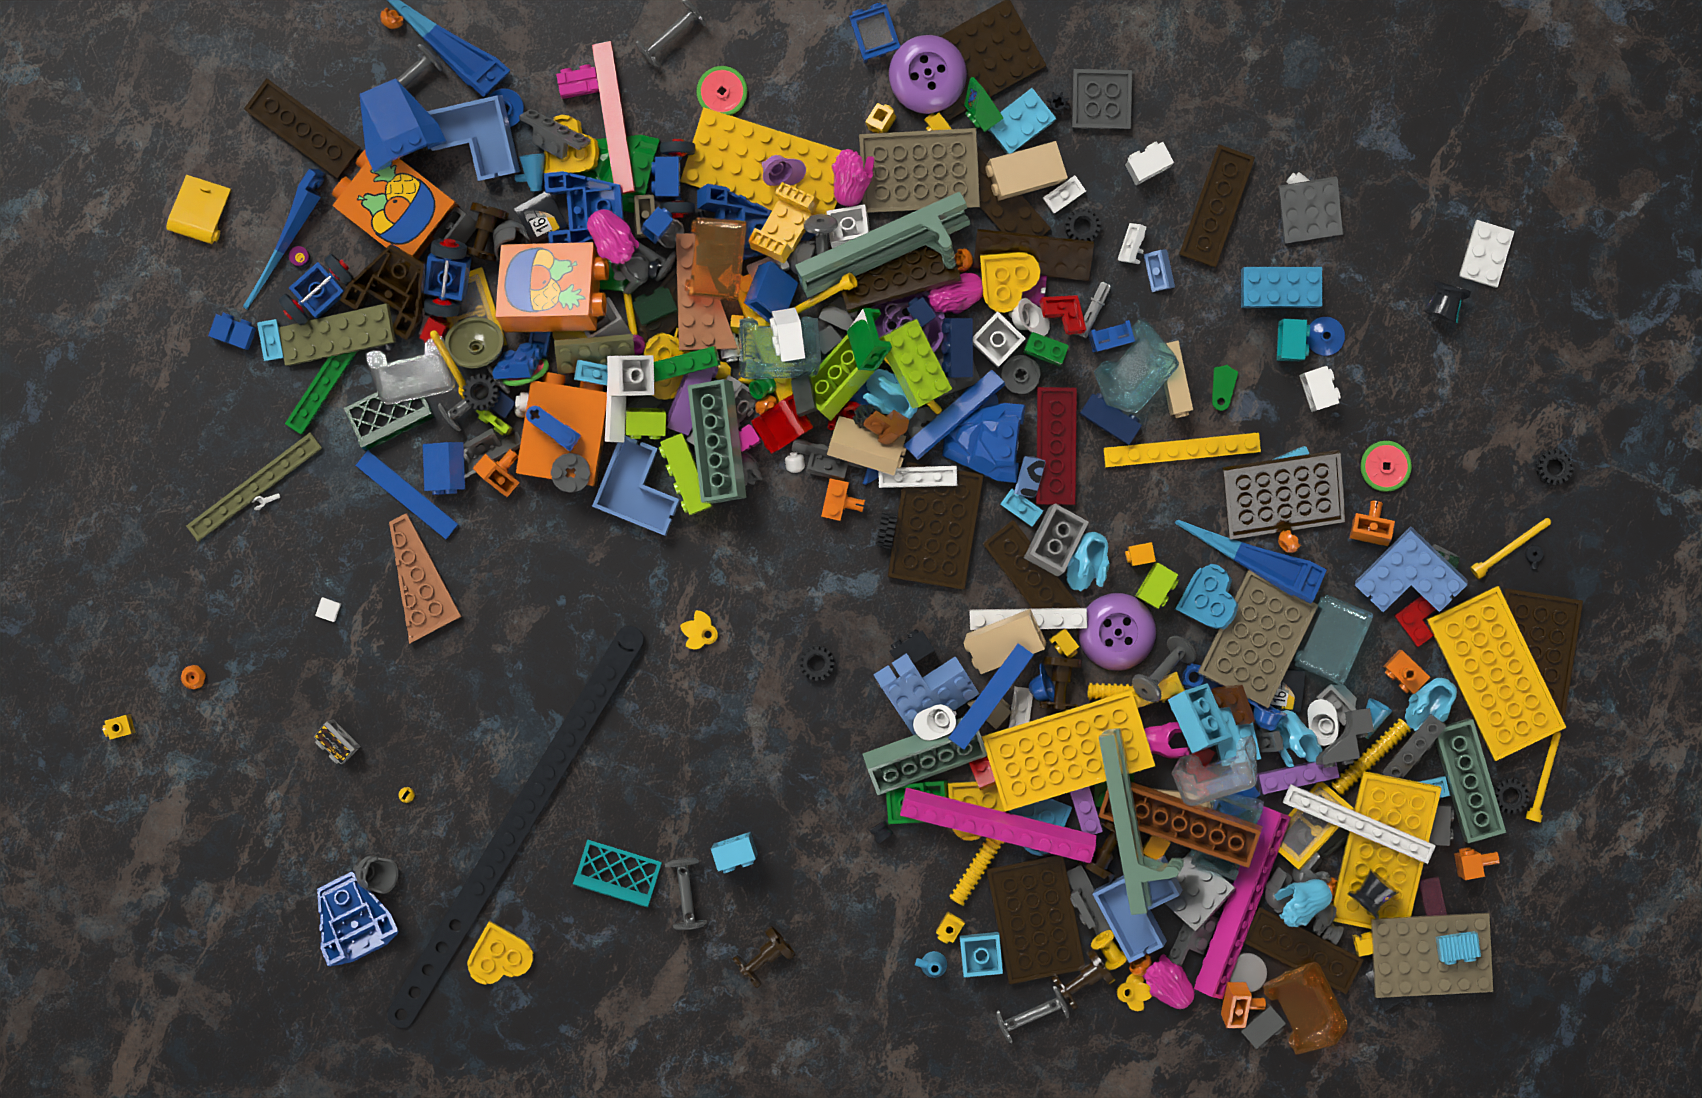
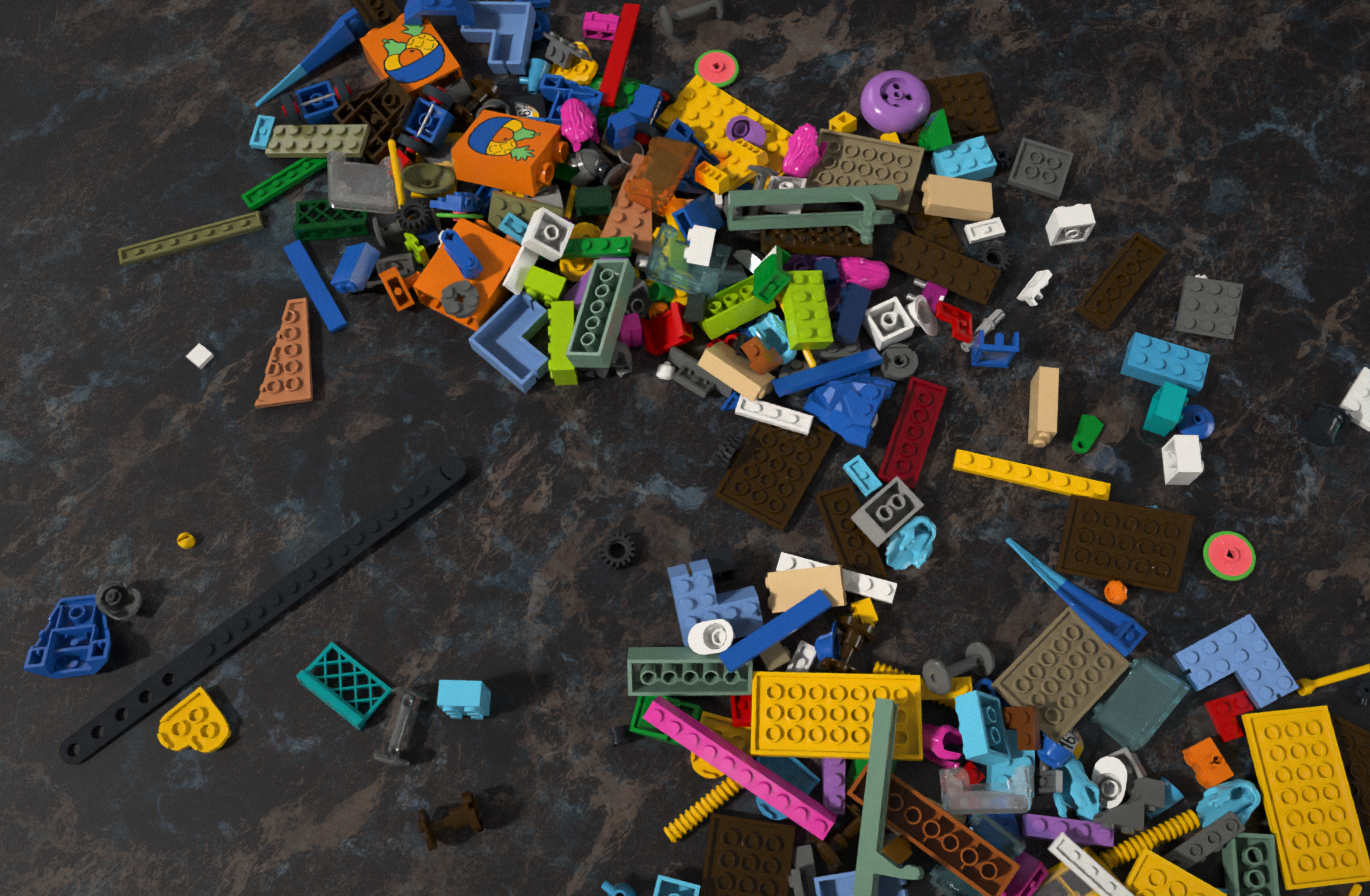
camera: 20 degrees right, 20 degrees down
(196, 211) = (254, 24): yellow door -> none
(199, 677) = (57, 377): orange plate -> none
(231, 331) = (233, 113): blue piece -> none
(263, 501) = (190, 250): white hand -> none
(299, 256) = (317, 78): magenta tile -> none
(336, 742) = (146, 467): slope -> none
(696, 629) = (518, 484): yellow plate -> none
(837, 500) = (692, 411): orange brick -> none
(847, 282) = (769, 226): yellow piece -> none
(874, 31) = (859, 60): window -> none
(953, 921) = (660, 862): yellow brick -> none
(963, 259) = (879, 252): orange plate -> none
(1007, 277) = (914, 273): yellow plate -> none
(1029, 476) = (879, 448): medium blue slope -> none
(1045, 349) = (930, 341): green panel -> none
(1110, 419) = (971, 425): dark blue brick -> none
(1138, 372) = (1014, 386): clear light blue windscreen -> none
(1140, 554) = (964, 555): light orange brick -> none
(1141, 630) = (914, 644): medium lavender brick -> none
(1157, 585) = (971, 588): lime brick -> none
(1159, 270) = (1052, 318): medium blue slope -> none
(1208, 598) = (1022, 618): dark azure plate -> none
(1372, 527) = (1204, 606): orange brick -> none

